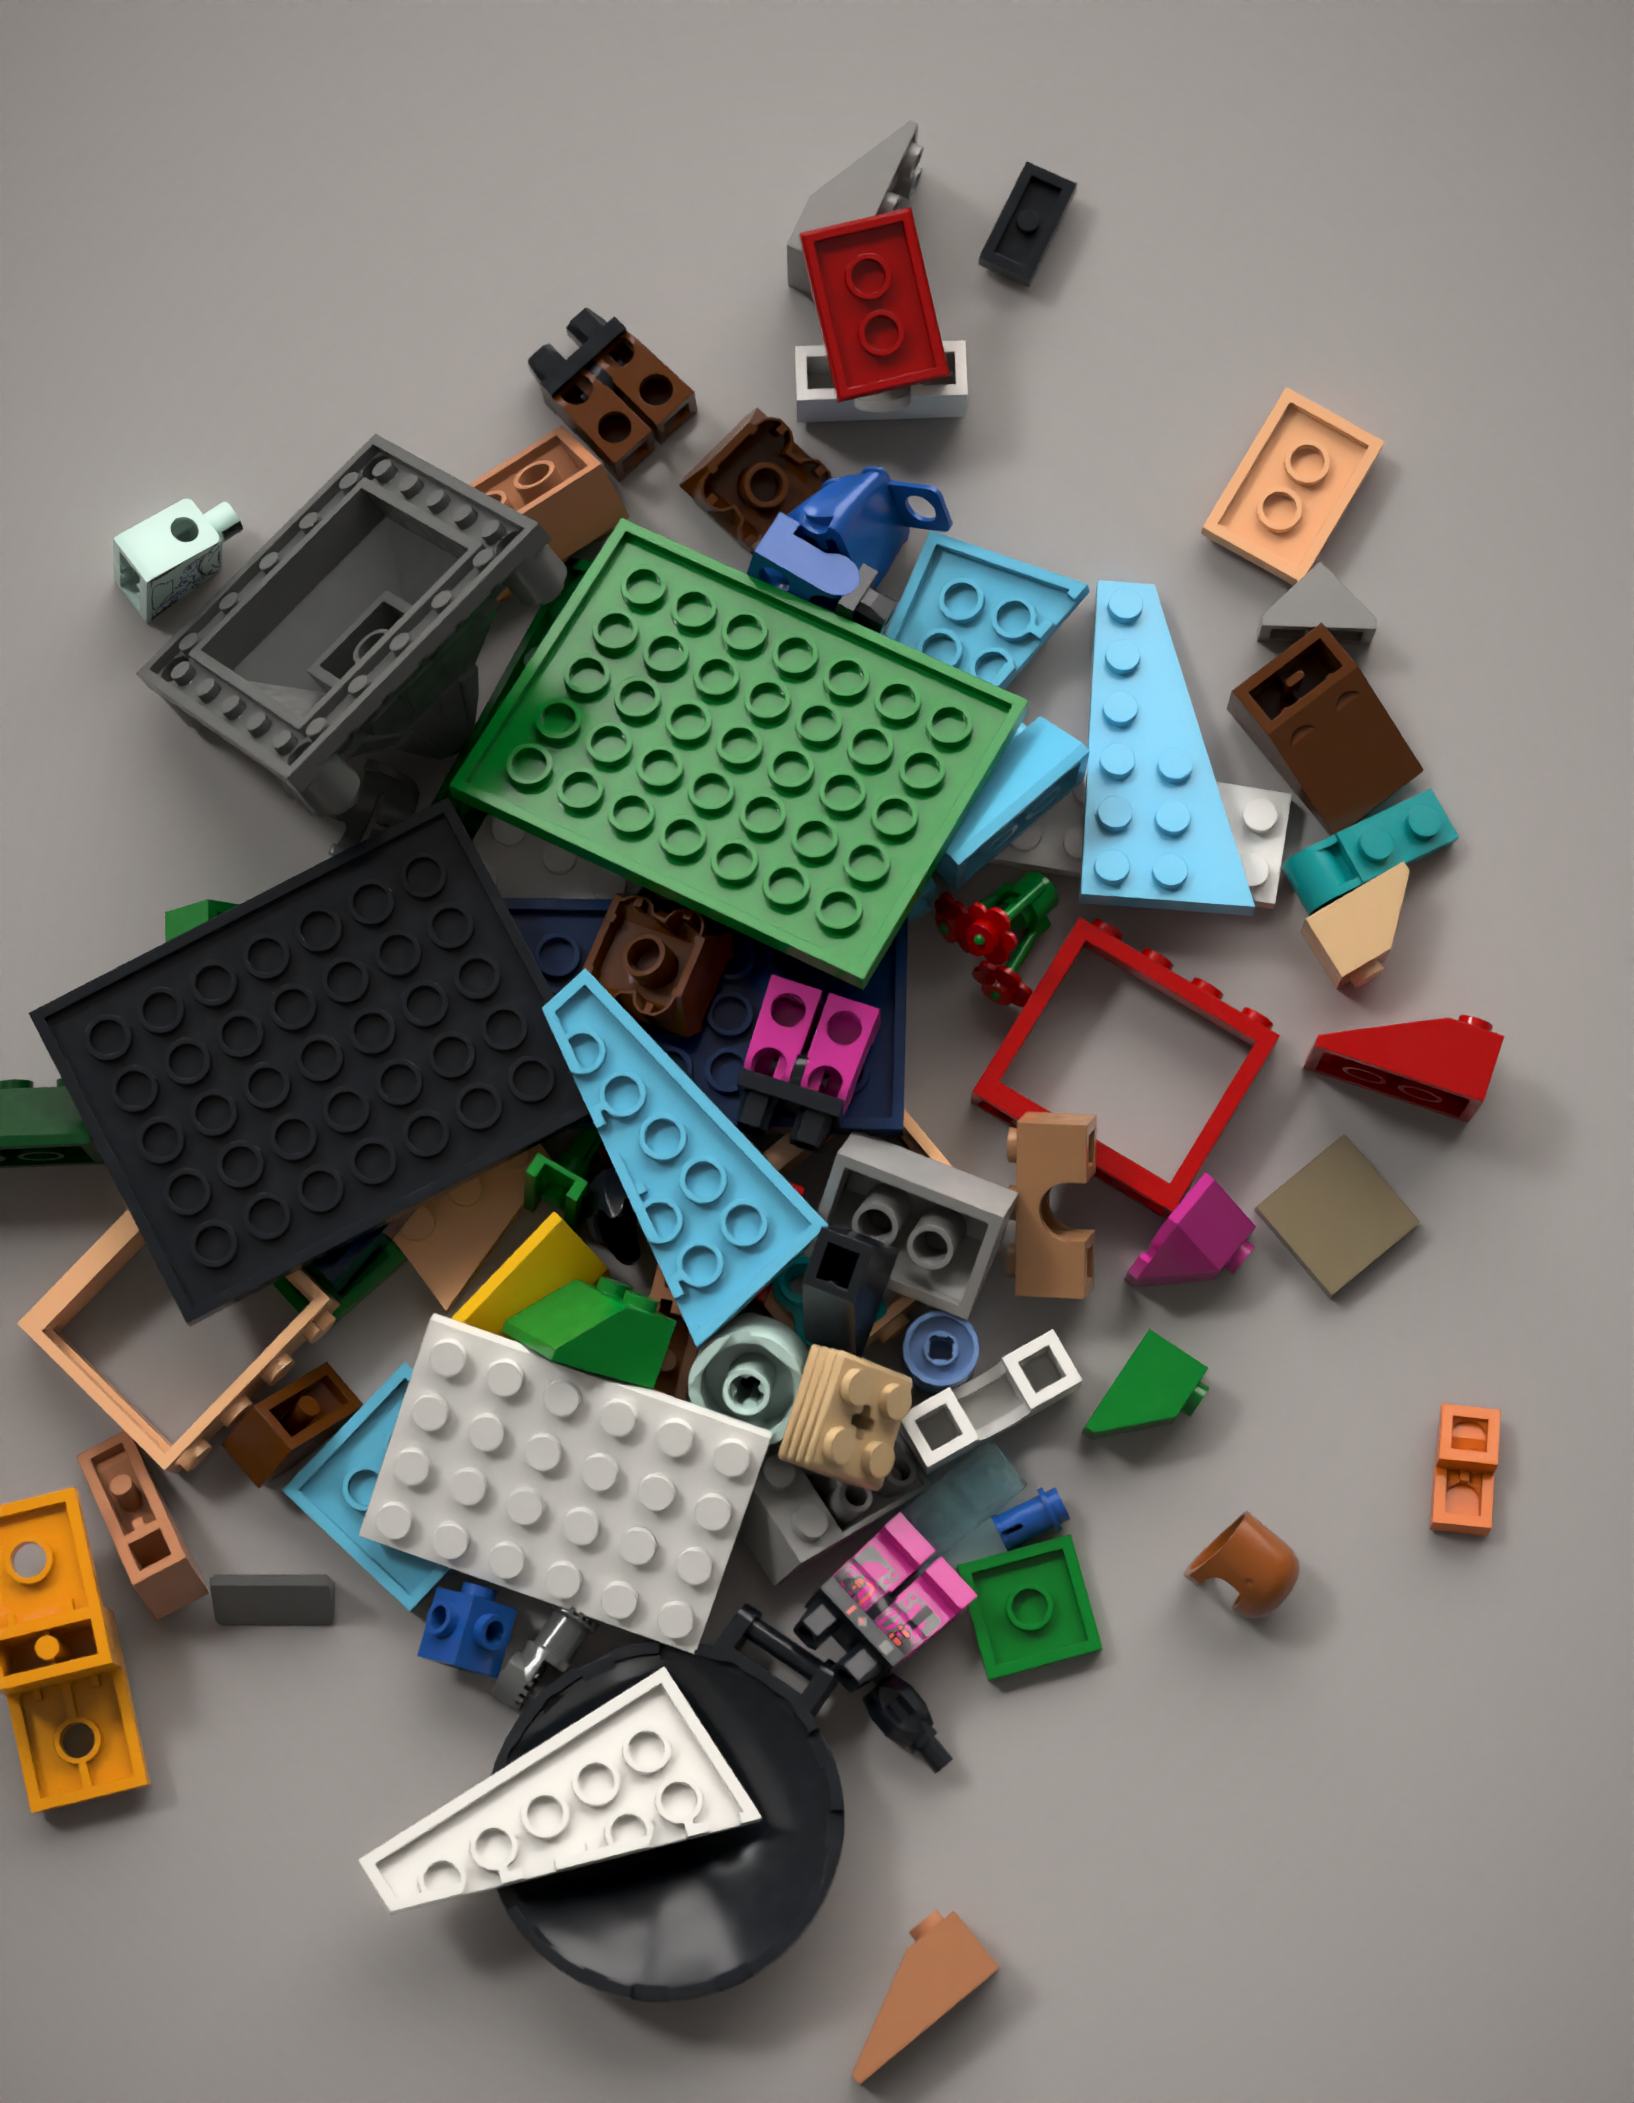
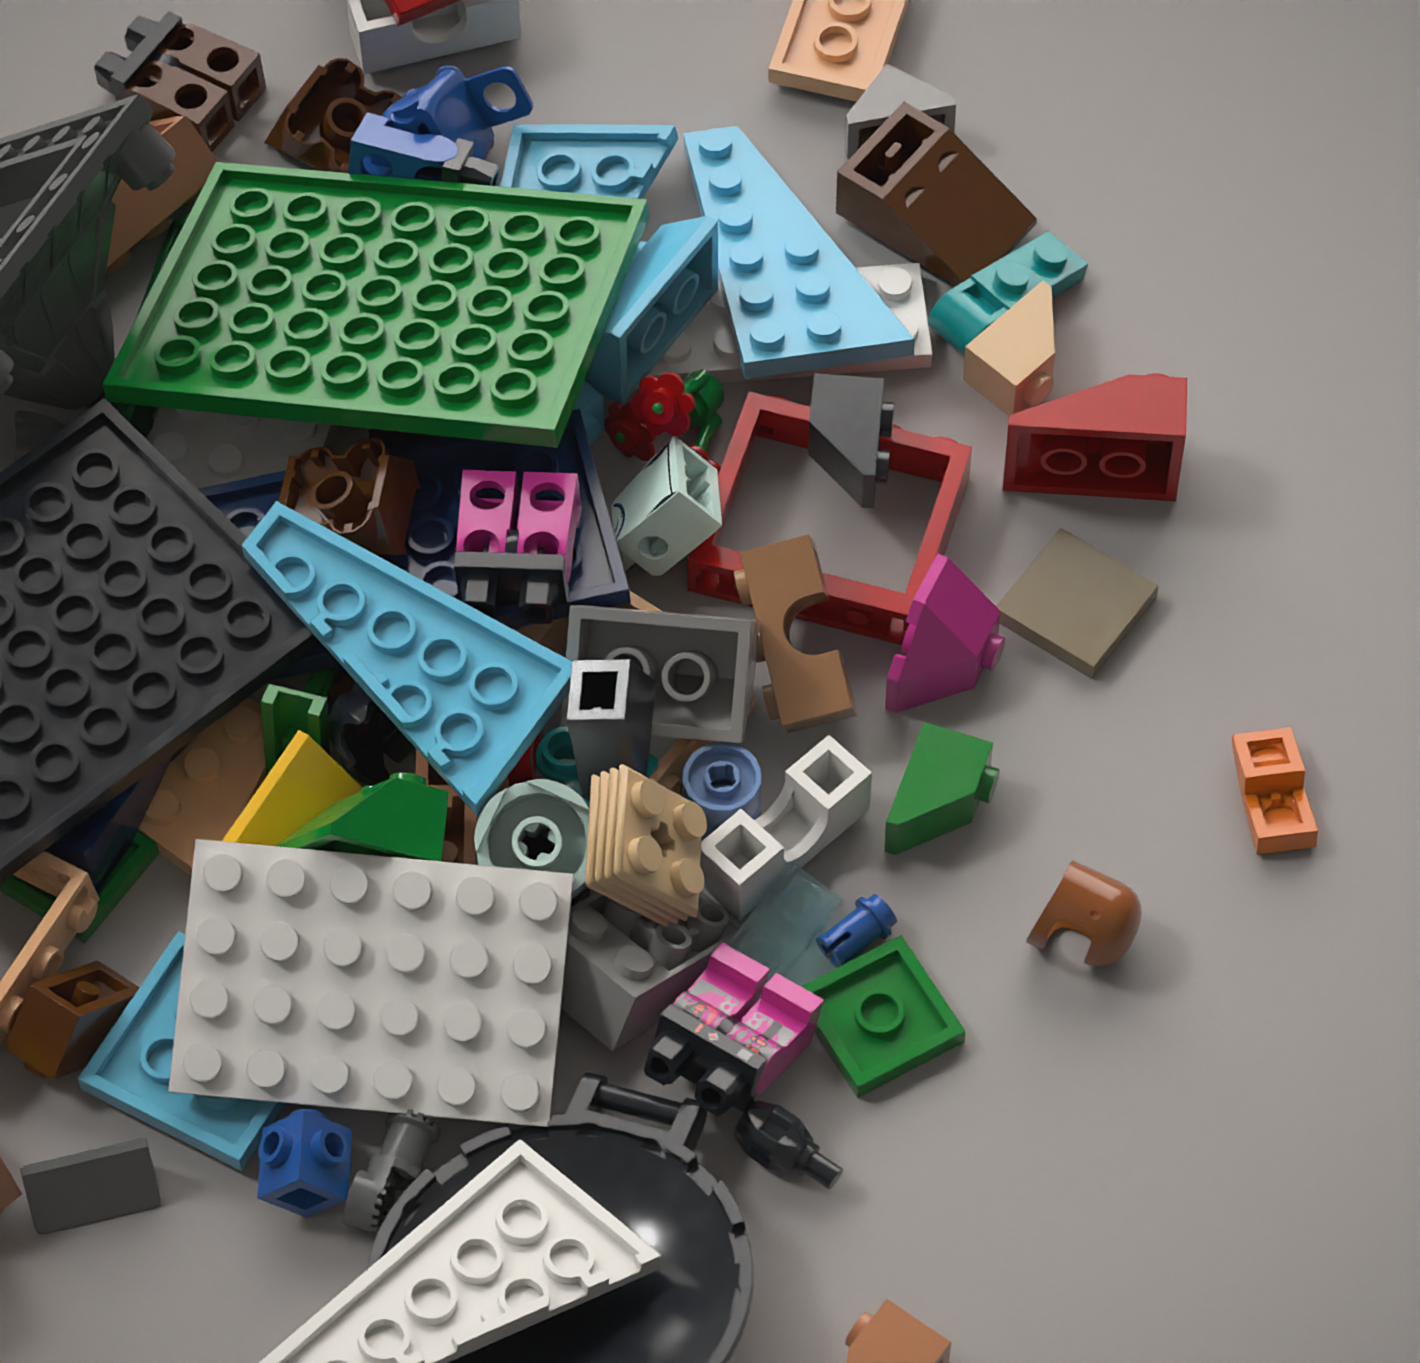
camera: 15 degrees left, 20 degrees down
(966, 1033) = (666, 509): none -> light aqua torso
(1158, 1001) = (847, 430): none -> slope

